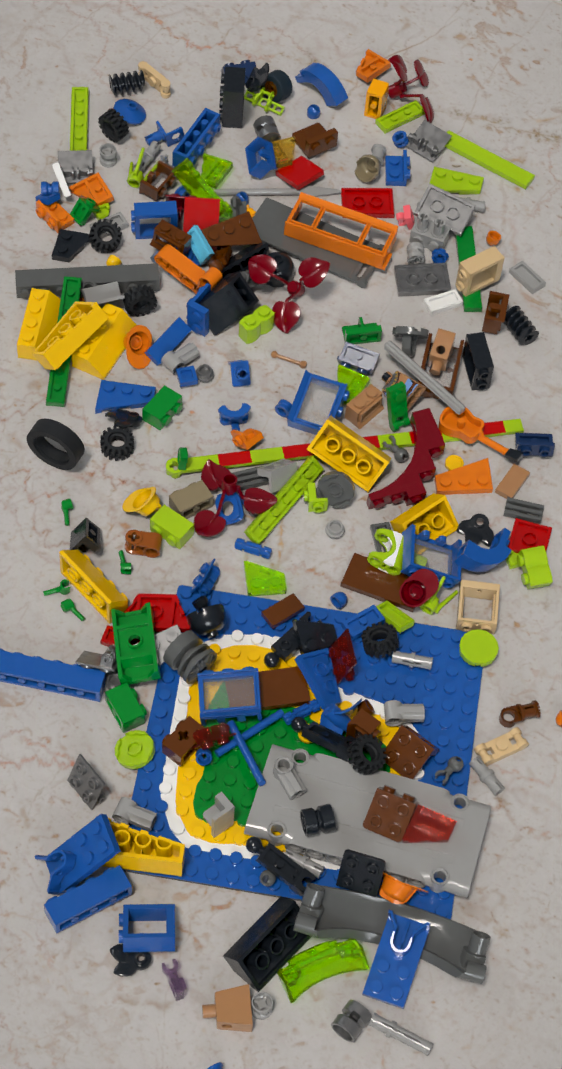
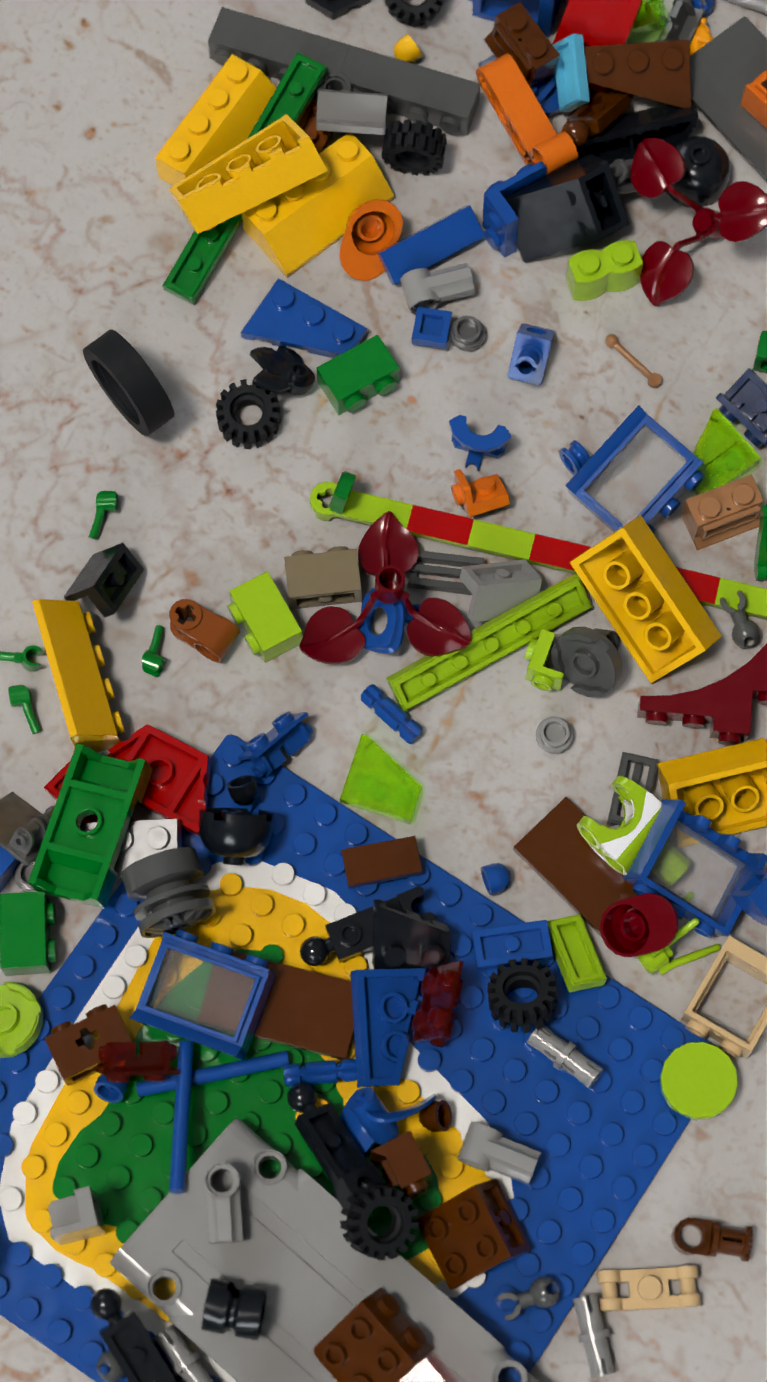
camera: 30 degrees right, 15 degrees up
(142, 501) = (235, 549): yellow piece -> none

